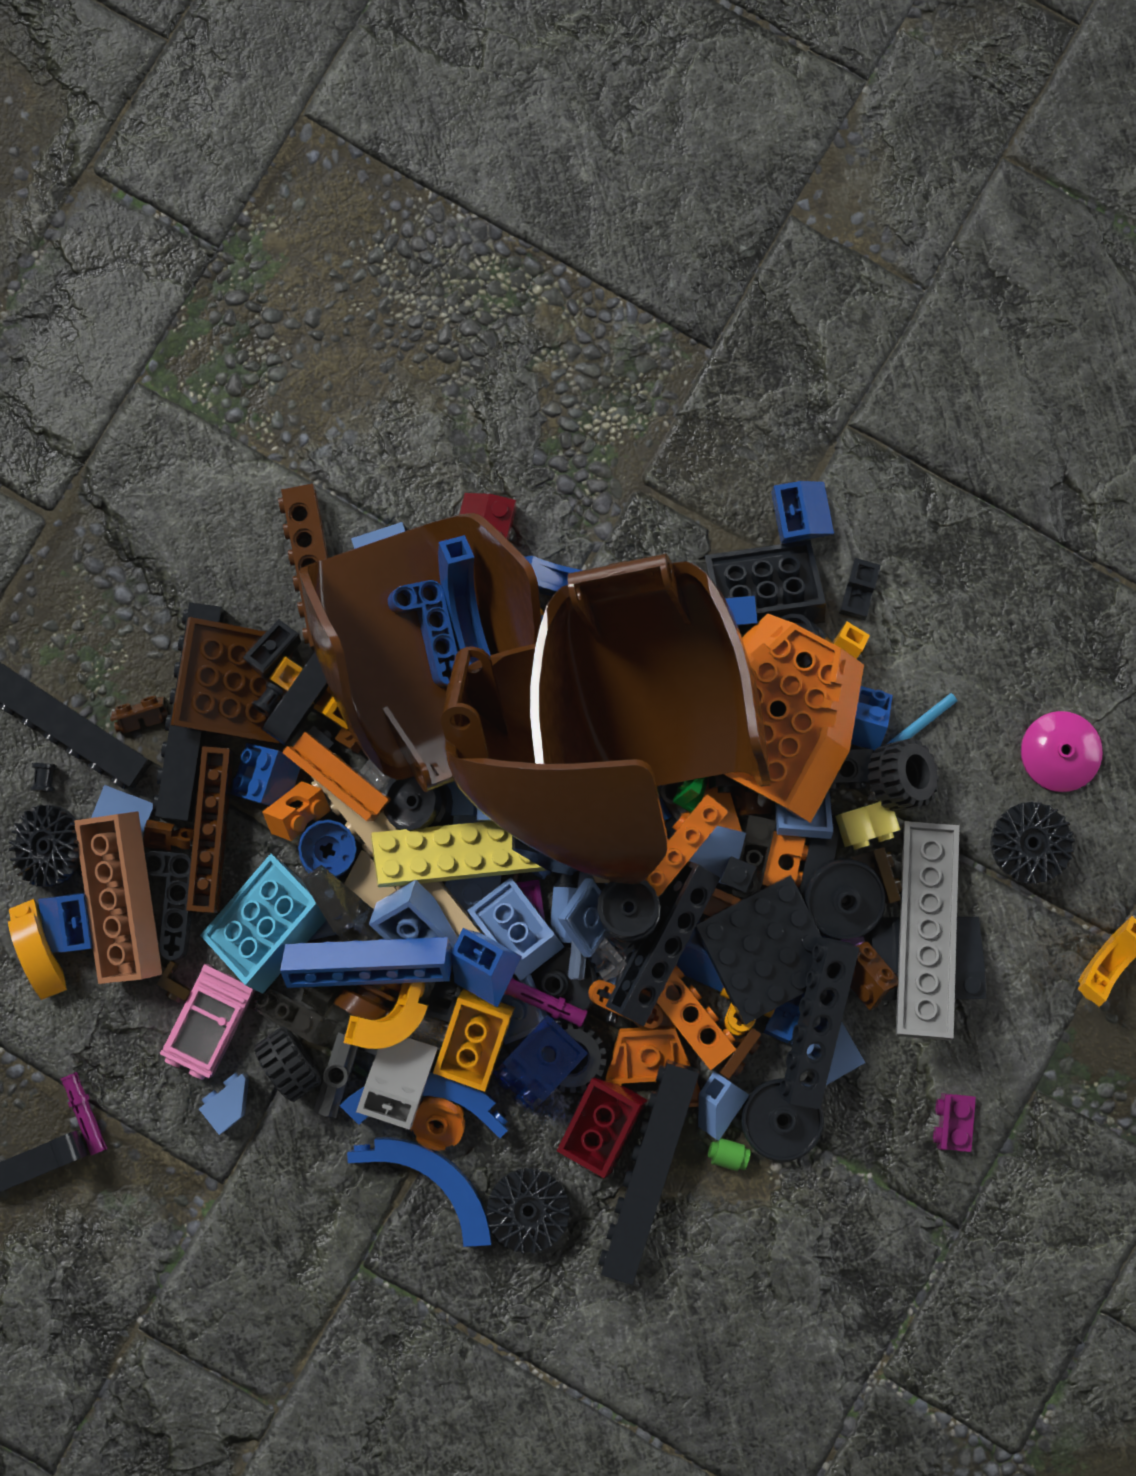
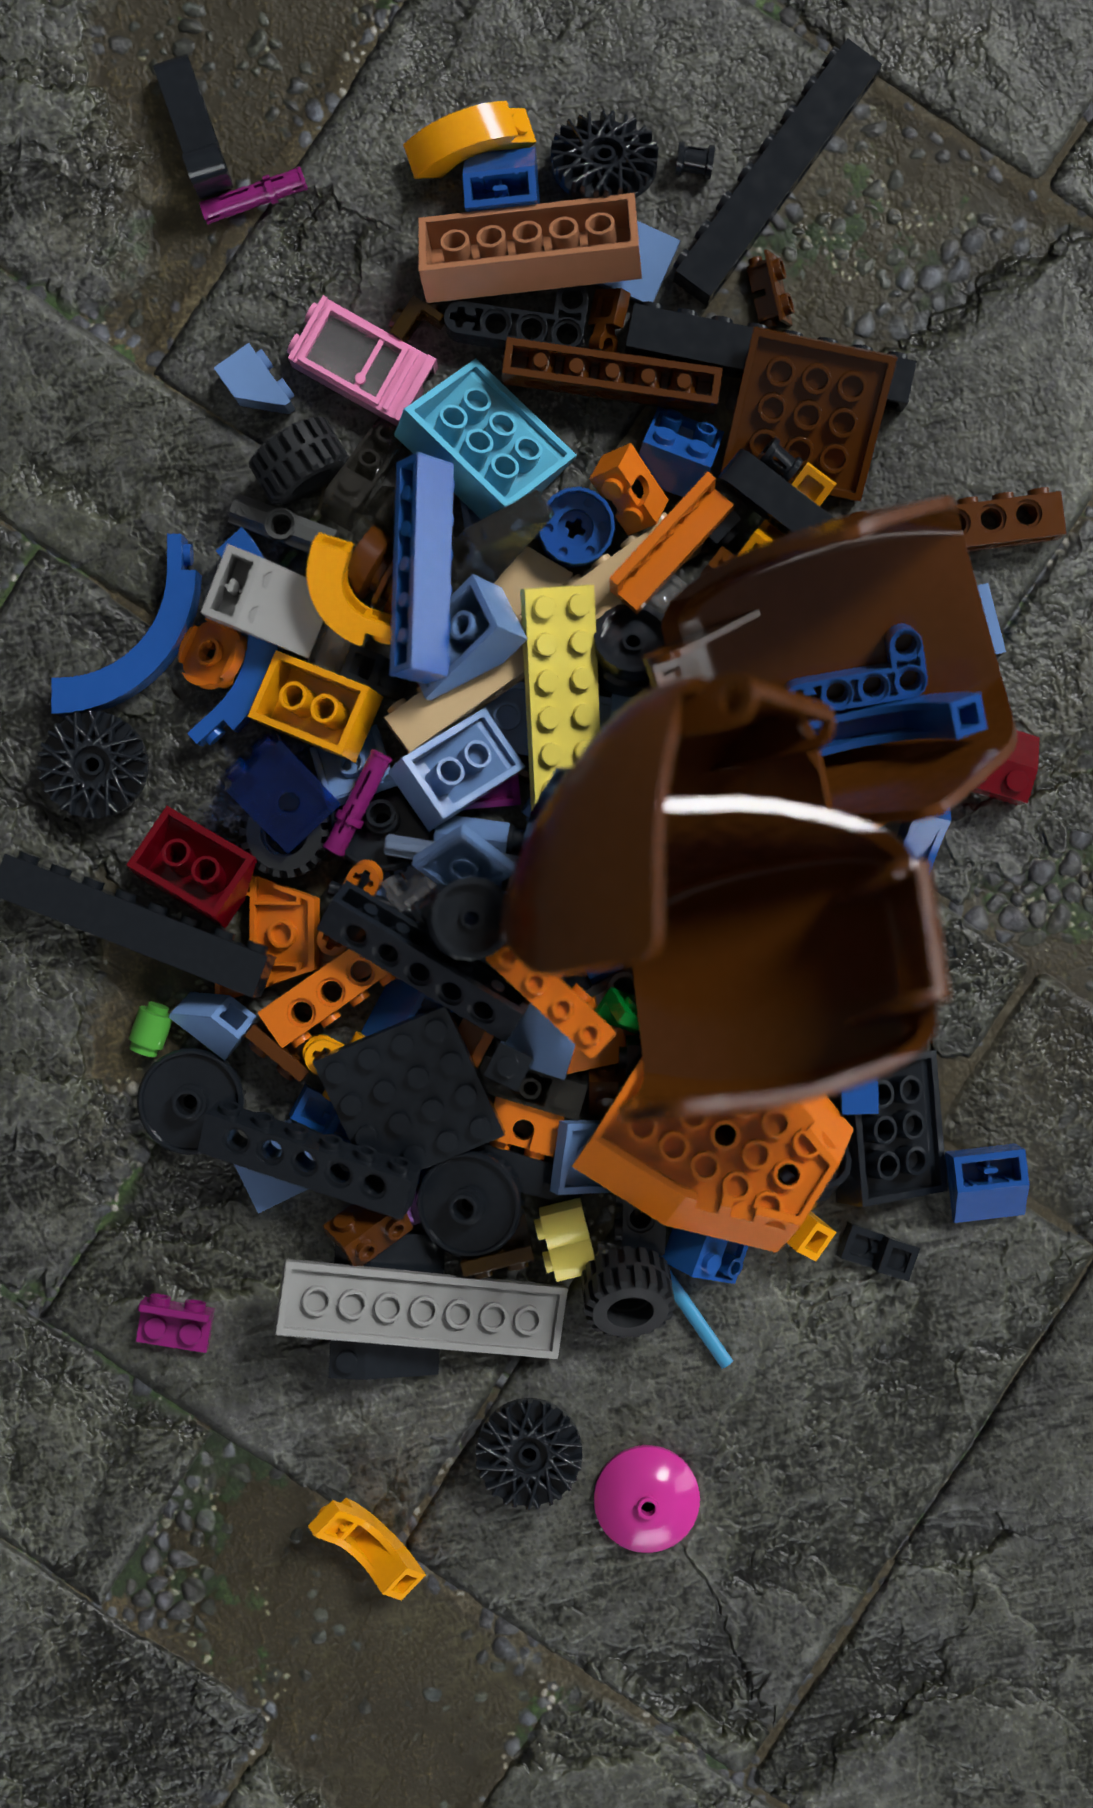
camera: 100 degrees right, 5 degrees up
(271, 647) = (848, 467): black slope -> none
(483, 965) = (408, 721): blue slope -> none

